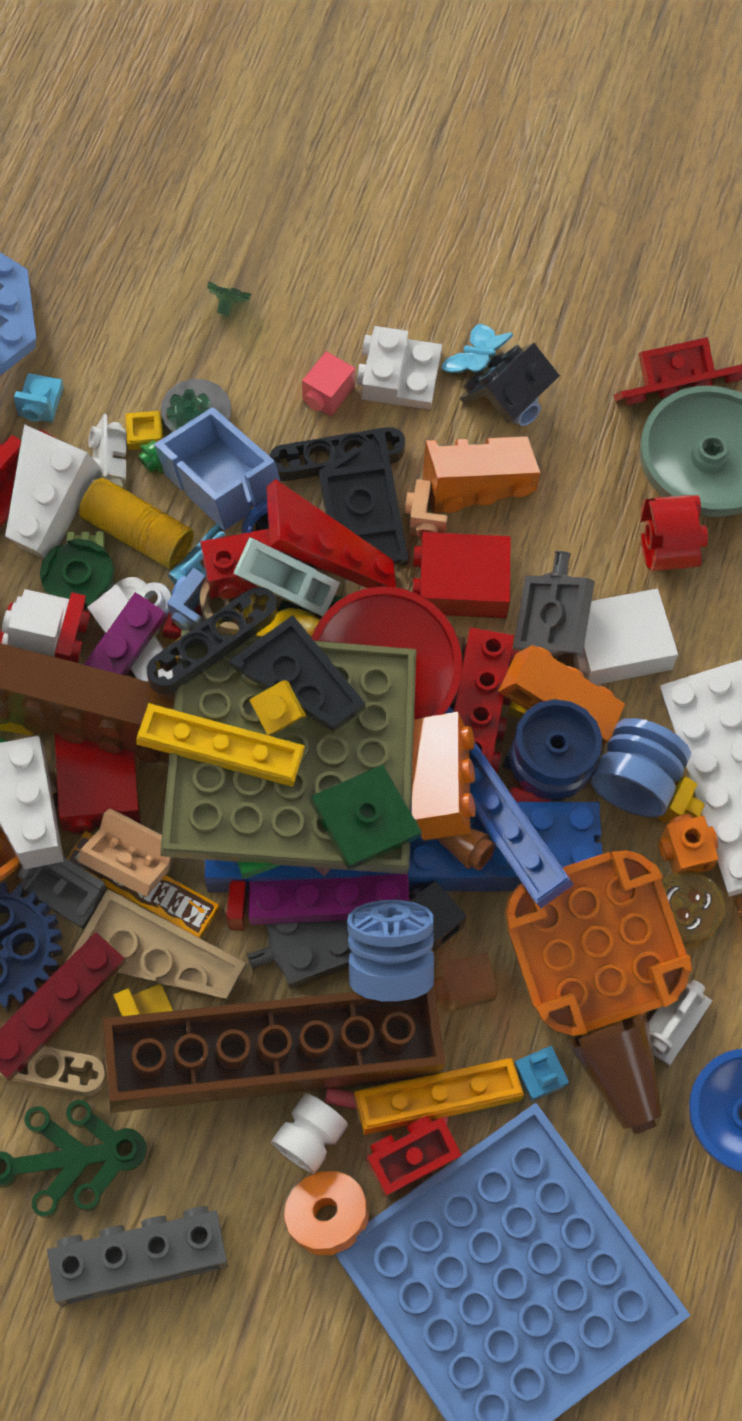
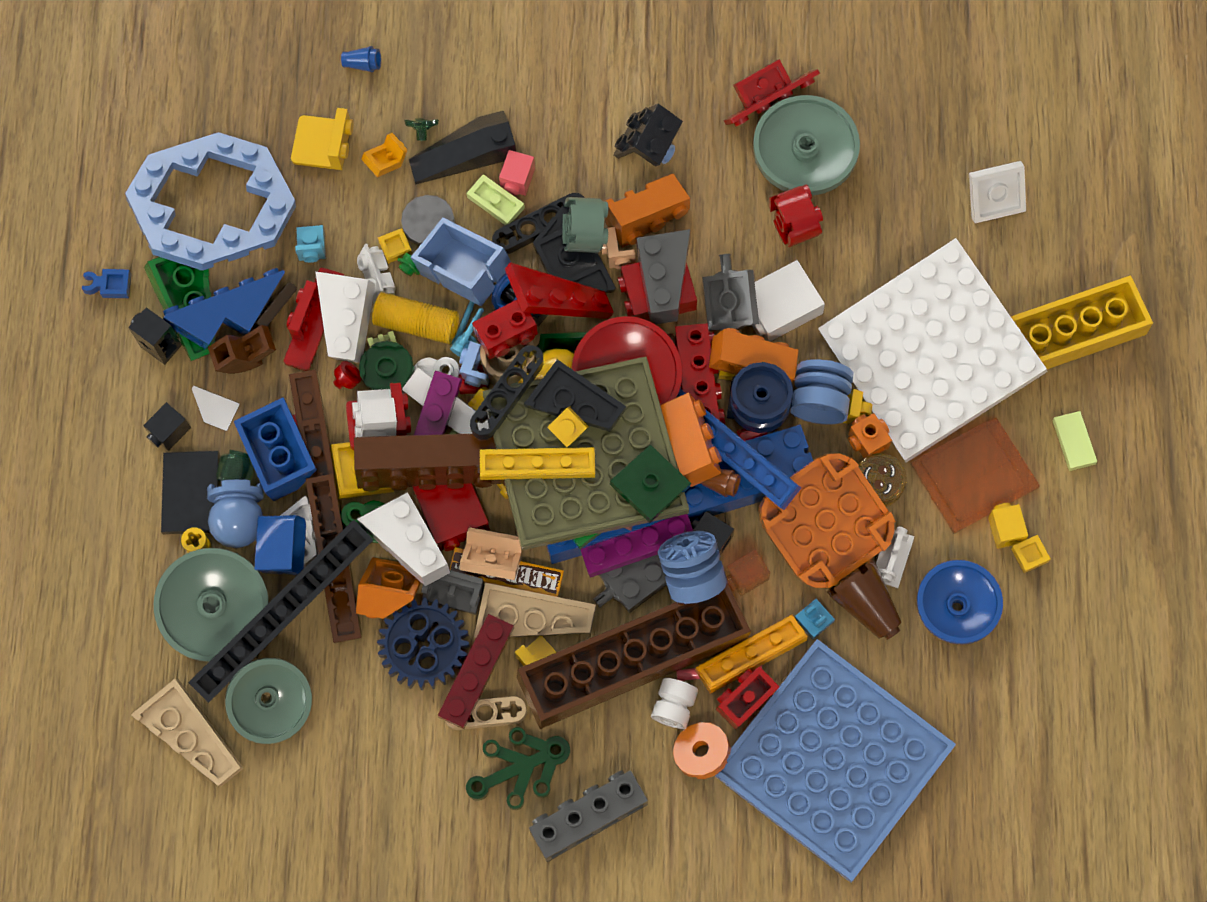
camera: 10 degrees left, 5 degrees up
(23, 570) = (346, 375): none -> red tile
(99, 280) = (322, 140): none -> yellow bracket
(169, 321) = (386, 156): none -> light orange bracket
(184, 200) = (362, 59): none -> blue cone
(186, 407) = (422, 221): clear green plant -> none
(236, 905) = (576, 567): red tile -> none
(276, 340) = (473, 146): none -> black wedge
(286, 577) = (542, 332): light aqua slope -> none
(290, 409) = (495, 200): none -> yellowish green plate
(390, 464) = (584, 225): none -> sand green brick
(398, 369) = (564, 146): white plate -> none
(475, 551) = (663, 271): none -> dark grey wedge
(476, 357) = (616, 120): medium azure piece -> none

